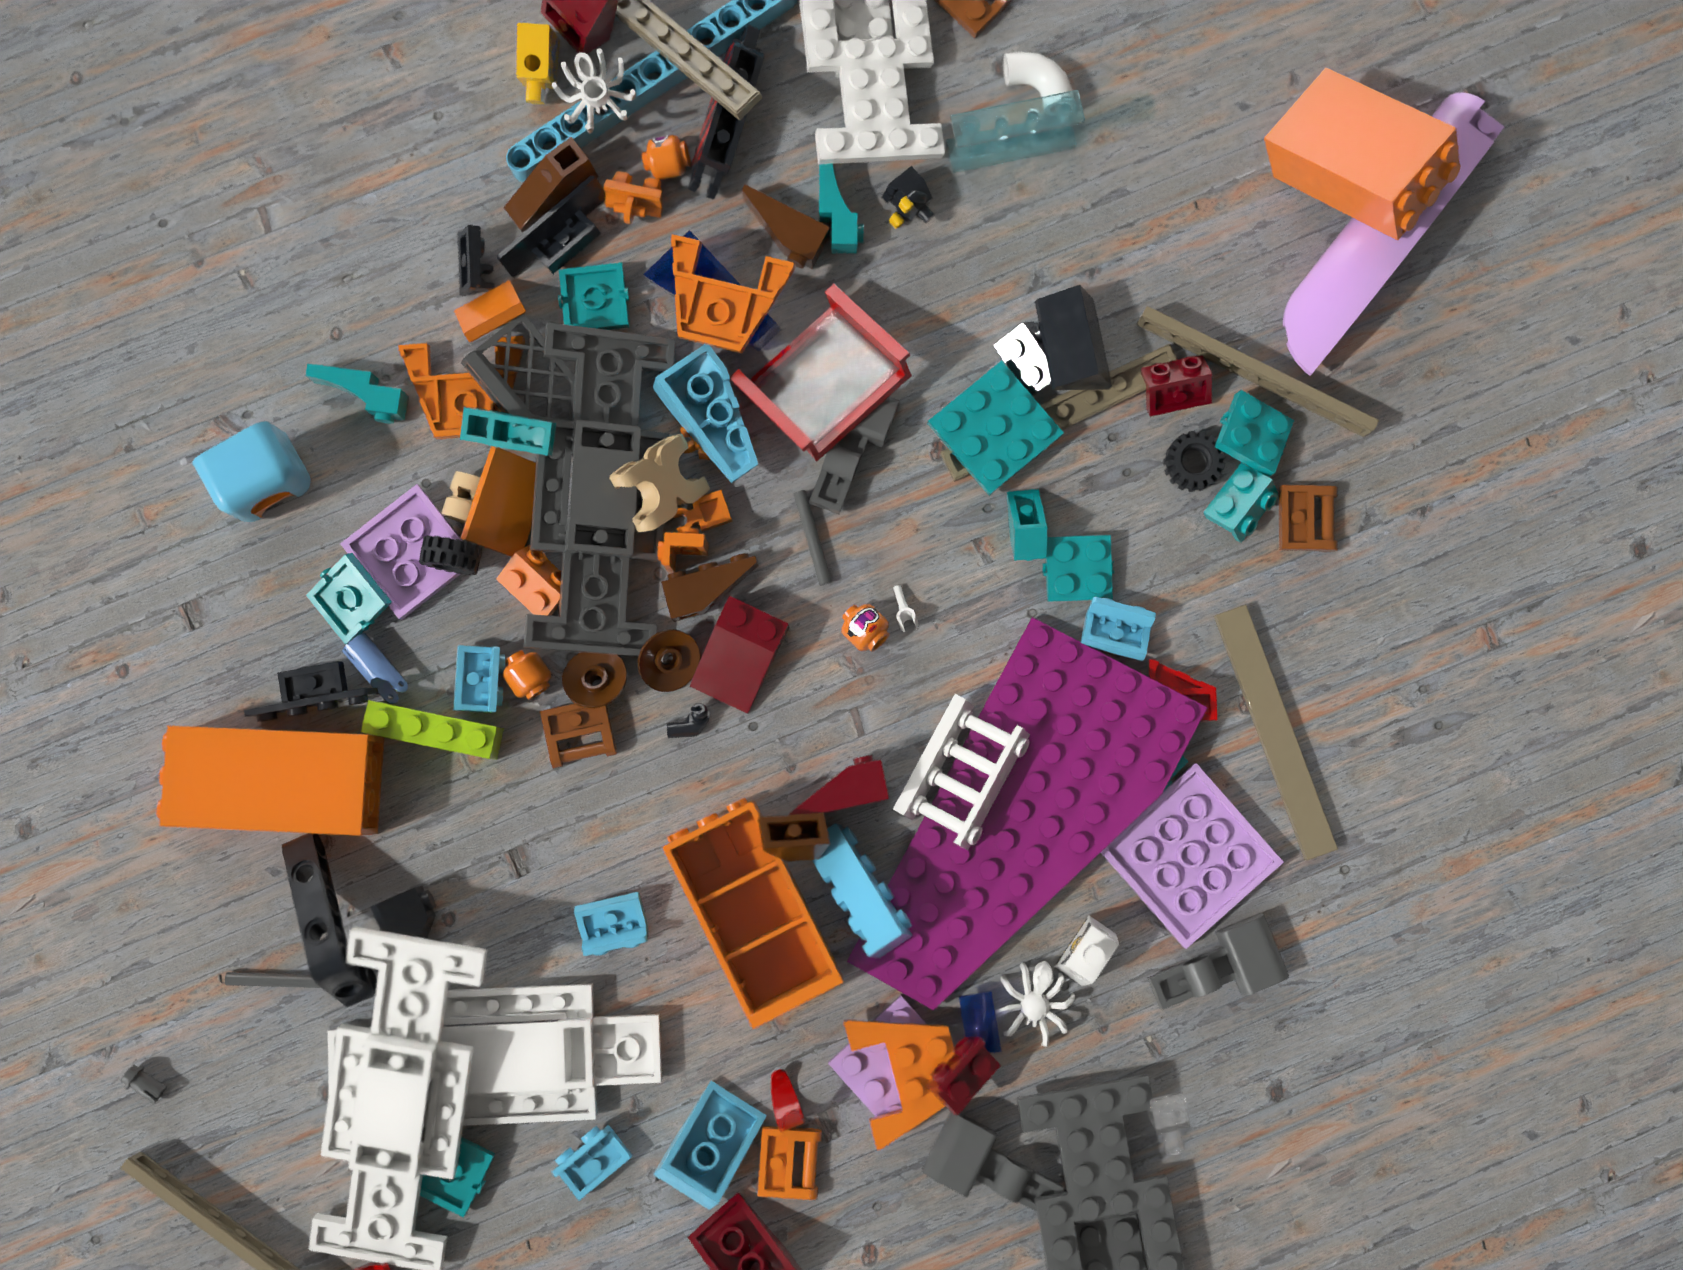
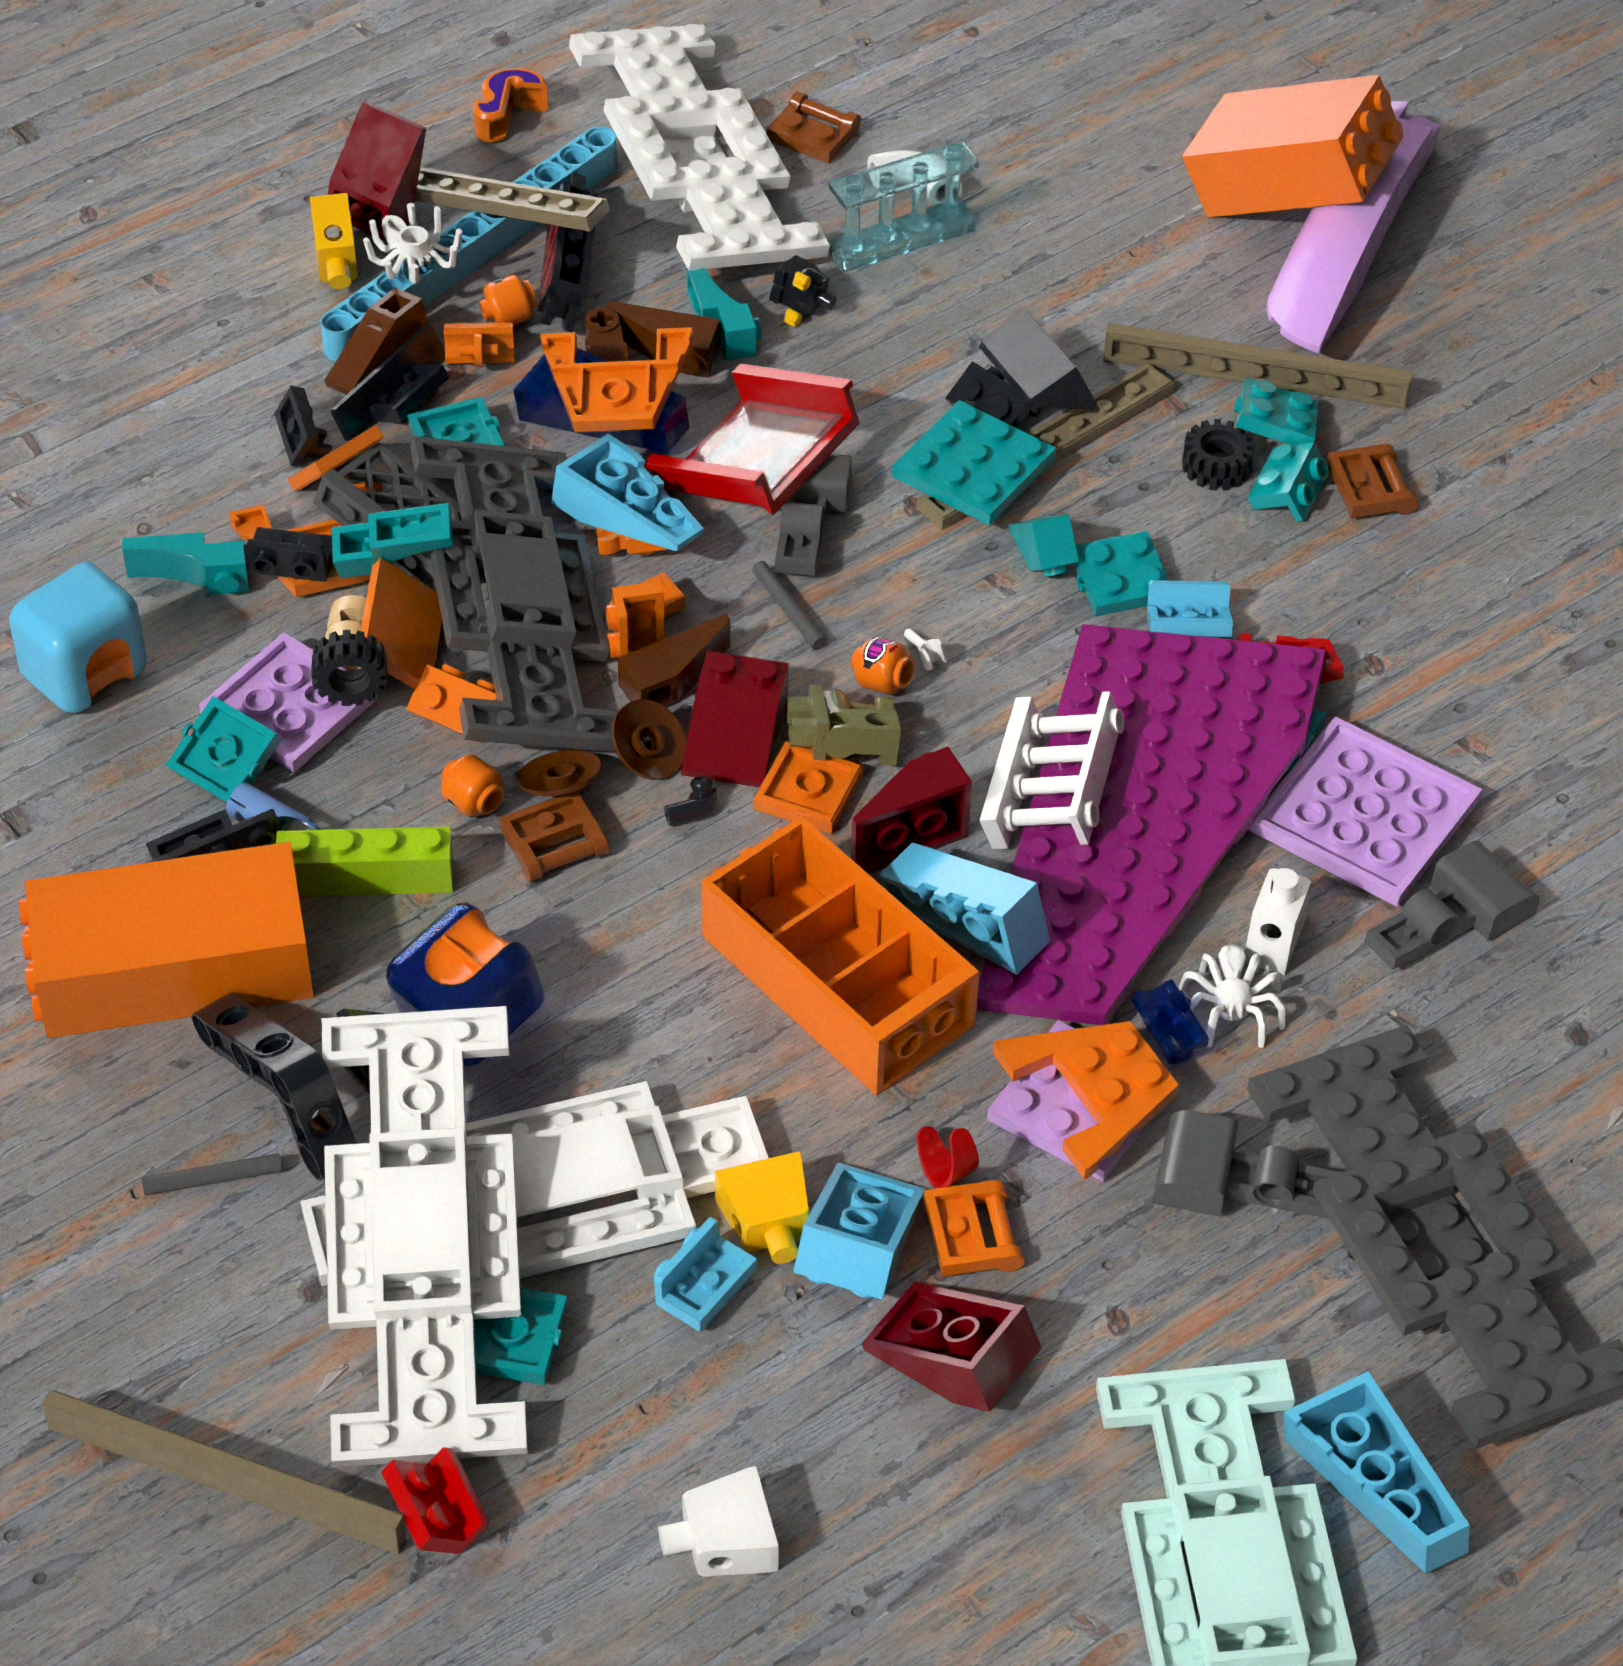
camera: 15 degrees left, 35 degrees down
(143, 1083) = (49, 1321): dark grey pin -> none
(433, 407) = (289, 554): none -> black bracket
(477, 875) = (465, 967): none -> clear blue piece
(478, 679) = (411, 796): medium azure bracket -> none
(611, 924) = (653, 1013): medium azure bracket -> none
(650, 1113) = (765, 1204): none -> yellow torso
(660, 483) = (588, 560): tan piece -> none
(733, 229) = (605, 335): none -> reddish brown piece
(780, 725) = (808, 787): none -> orange tile
(794, 836) = (871, 838): reddish brown slope -> none
(810, 685) = (841, 727): none -> olive hips
(963, 1074) = (1166, 1051): dark red bracket -> none
(1168, 1118) = (1452, 1063): clear bracket -> none
(1177, 385) = (1172, 392): dark red bracket -> none
(1275, 732) = (1422, 682): dark tan tile -> none

